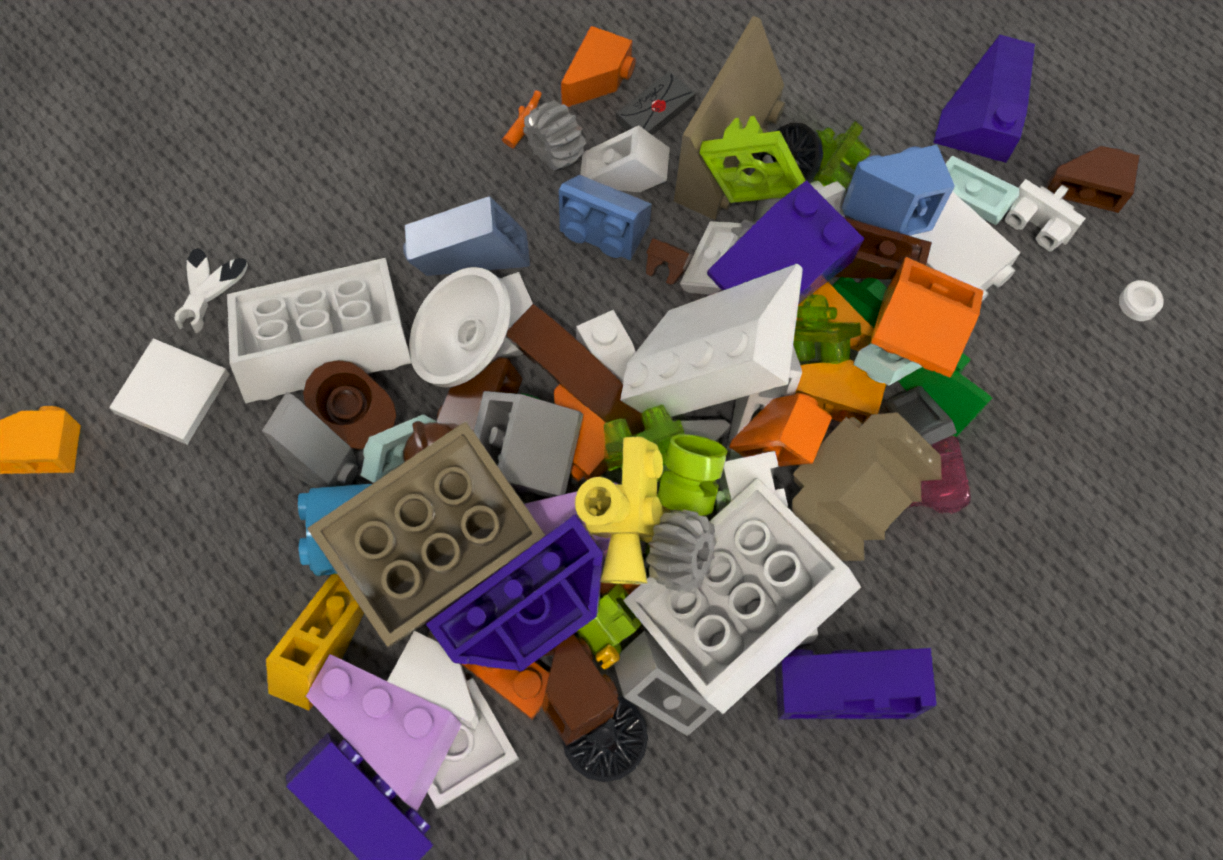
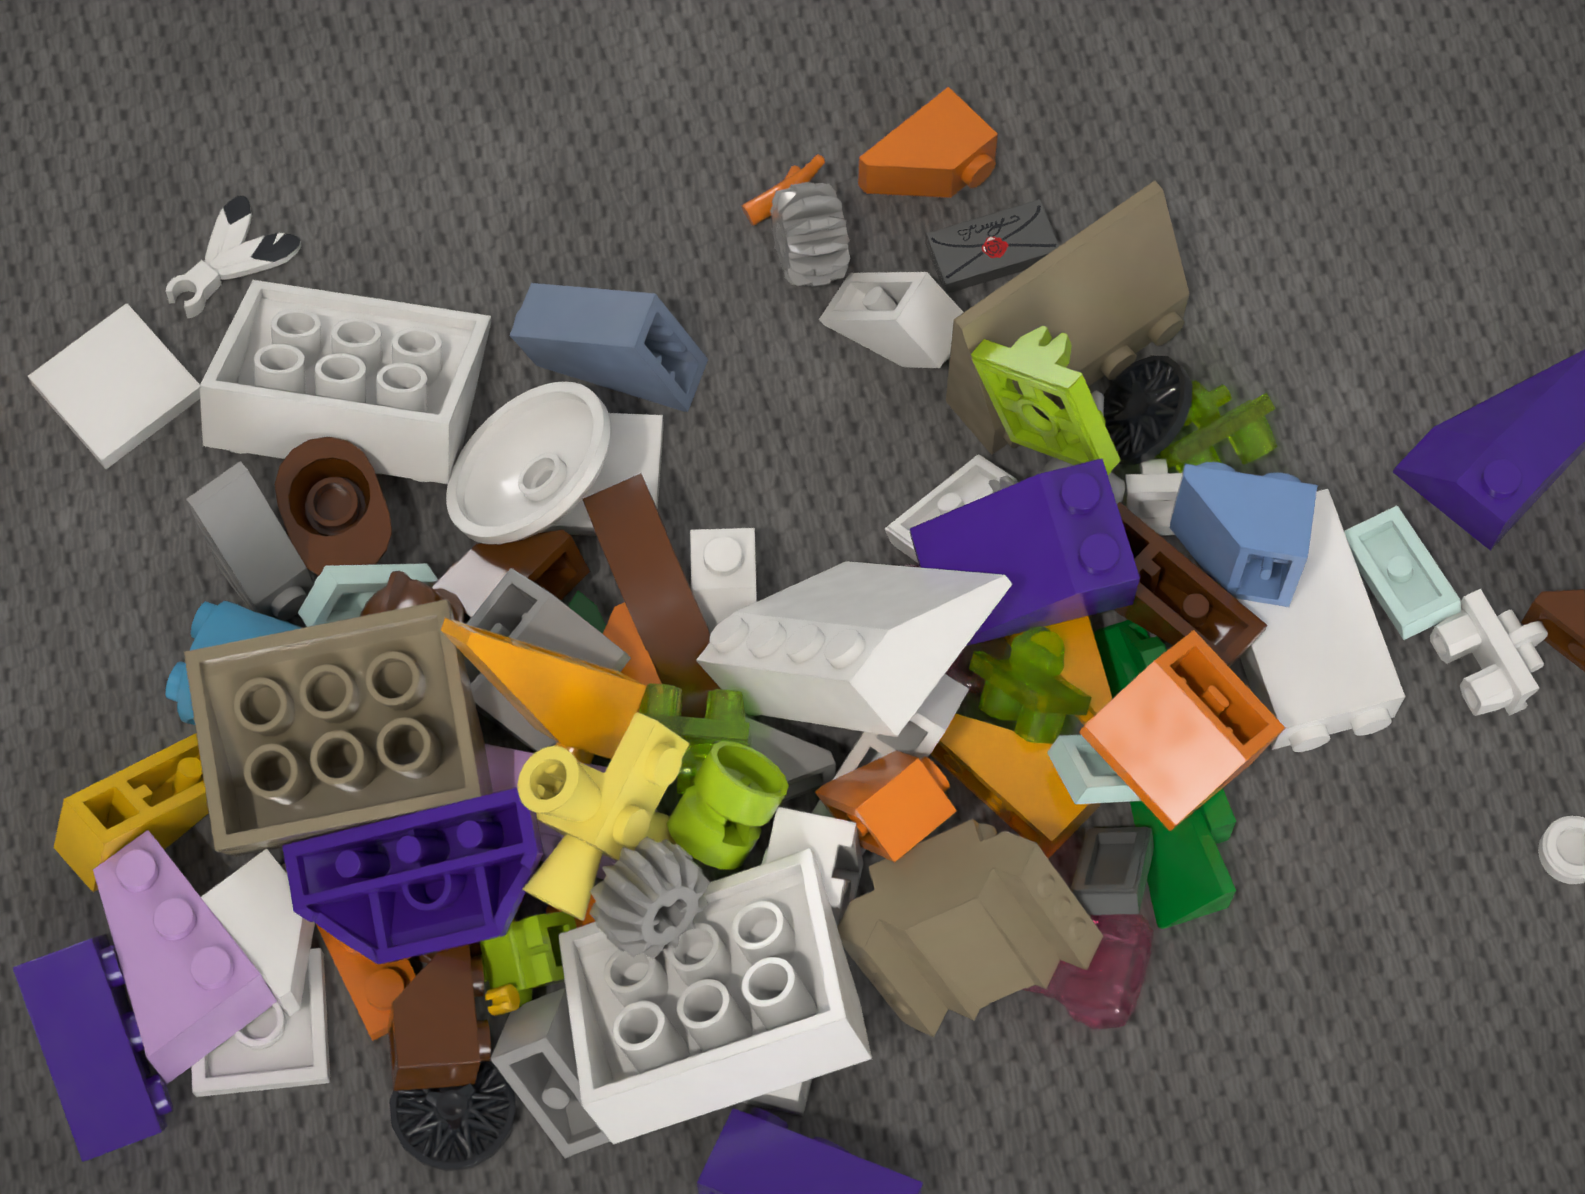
camera: 30 degrees right, 0 degrees up
(554, 452) = (558, 694): none -> light orange slope
(602, 216) = (819, 383): medium blue slope -> none
(662, 252) = (891, 481): reddish brown tile -> none

